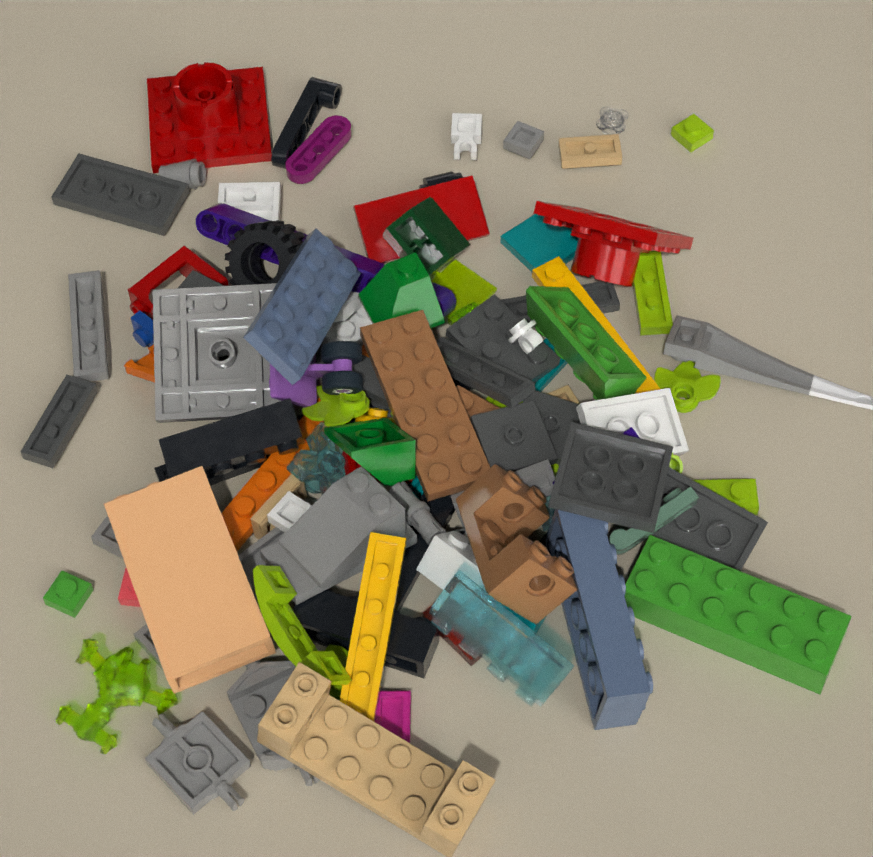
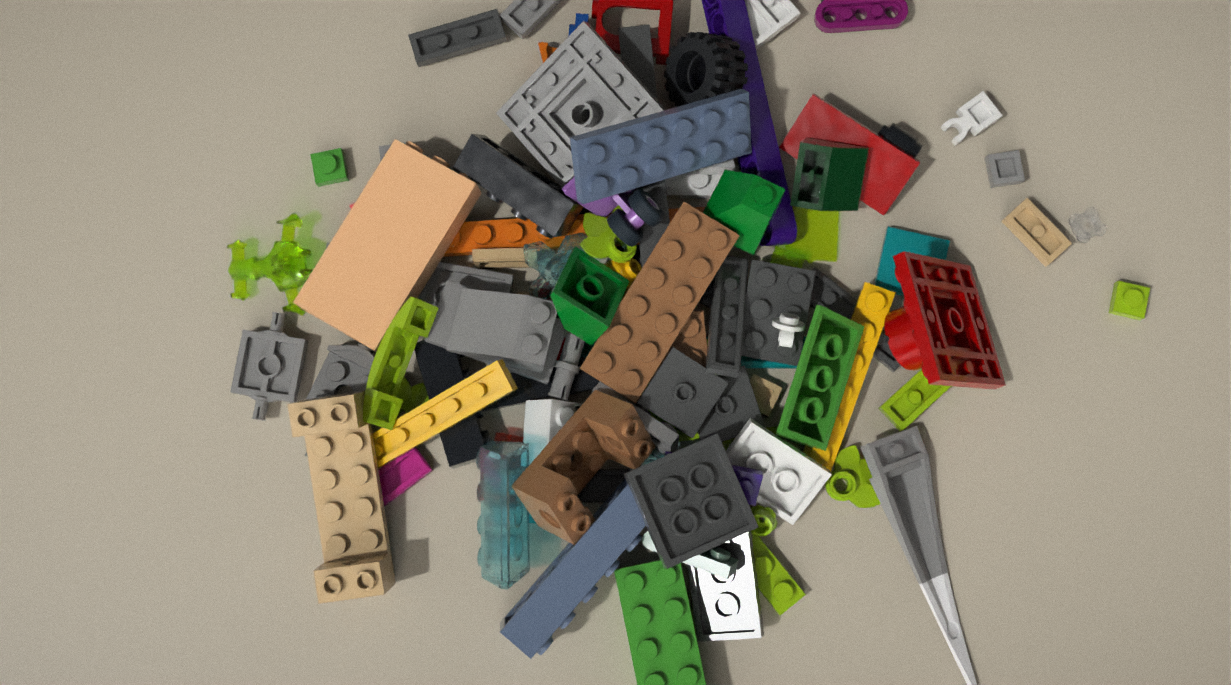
camera: 55 degrees right, 25 degrees up
(287, 511) = (498, 275): white plate -> none

